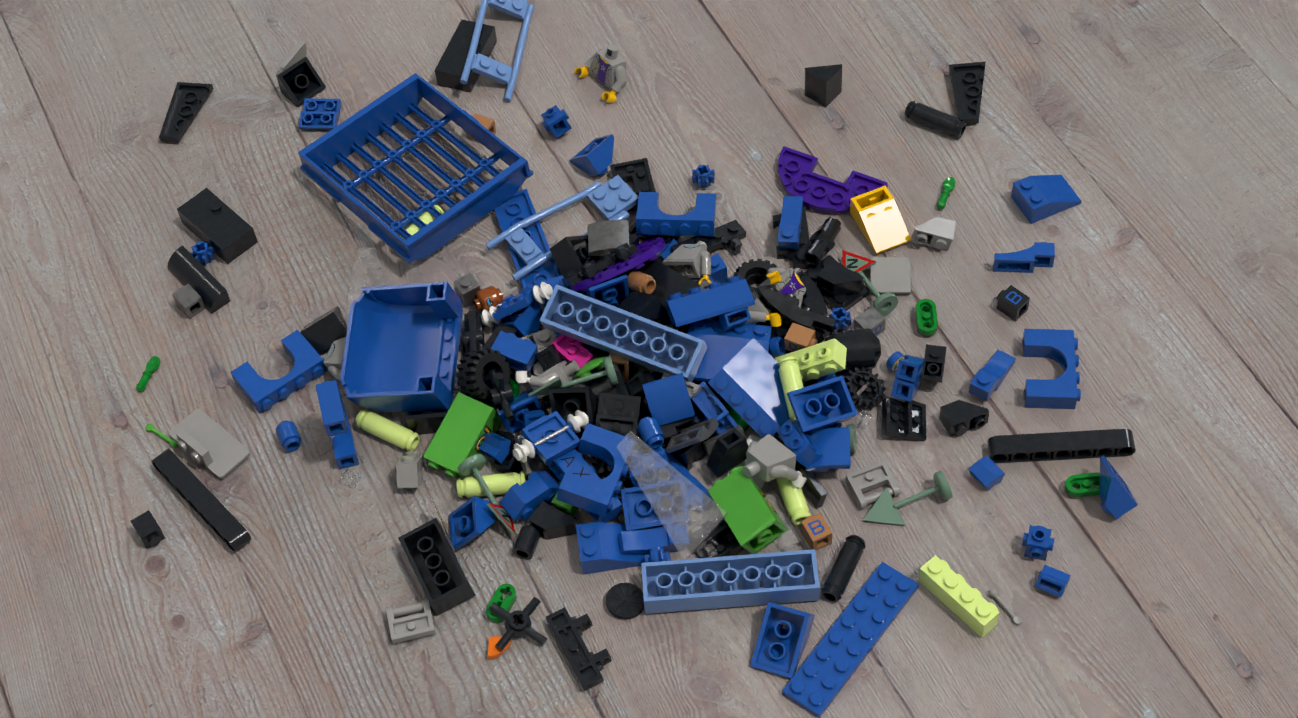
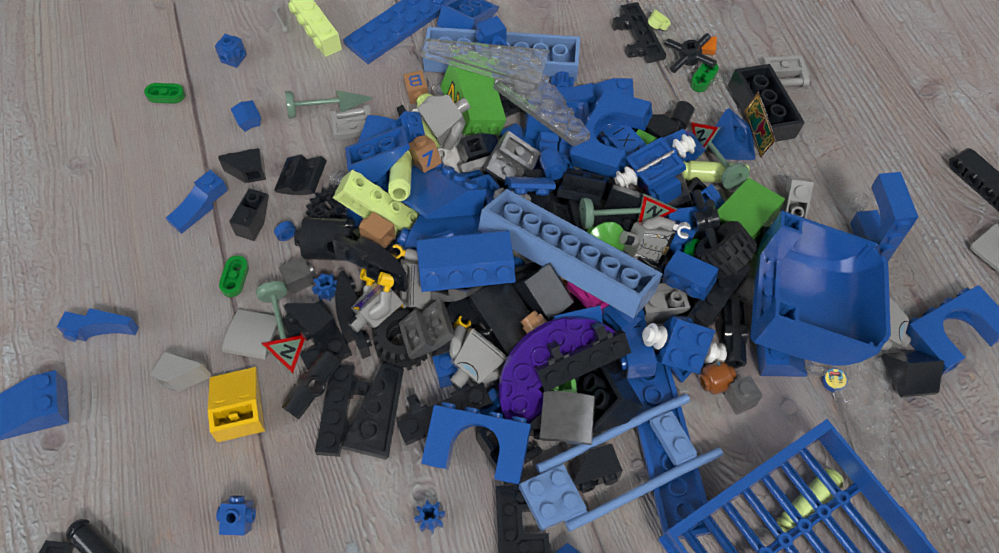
camera: 175 degrees left, 5 degrees up
(288, 435) = (932, 253): blue brick -> none
(556, 666) = (658, 20): none -> yellowish green tile
(577, 223) = (598, 467): none -> black slope
(625, 600) = (595, 64): black wheel -> none
(722, 527) = (507, 63): none -> clear wing
(732, 264) = (426, 330): none -> flat silver slope
(741, 573) = (491, 32): none -> blue brick
(763, 228) = (375, 419): none -> black wing
(776, 415) = (424, 153): none -> medium nougat brick
(790, 222) = (340, 408): blue slope -> none
(817, 190) = (290, 465): dark purple plate -> none
(843, 568) = (401, 57): black axle -> none
(846, 151) = (235, 516): none -> blue brick
(907, 378) = (278, 197): blue hips -> none
(948, 186) = (135, 447): green piece -> none
(1012, 303) = (137, 274): black brick -> none
(1053, 581) = (232, 26): blue piece -> none
(1061, 347) = (135, 176): blue arch -> none
(1061, 445) = (168, 127): black beam -> none
(1114, 491) = (144, 70): blue slope -> none

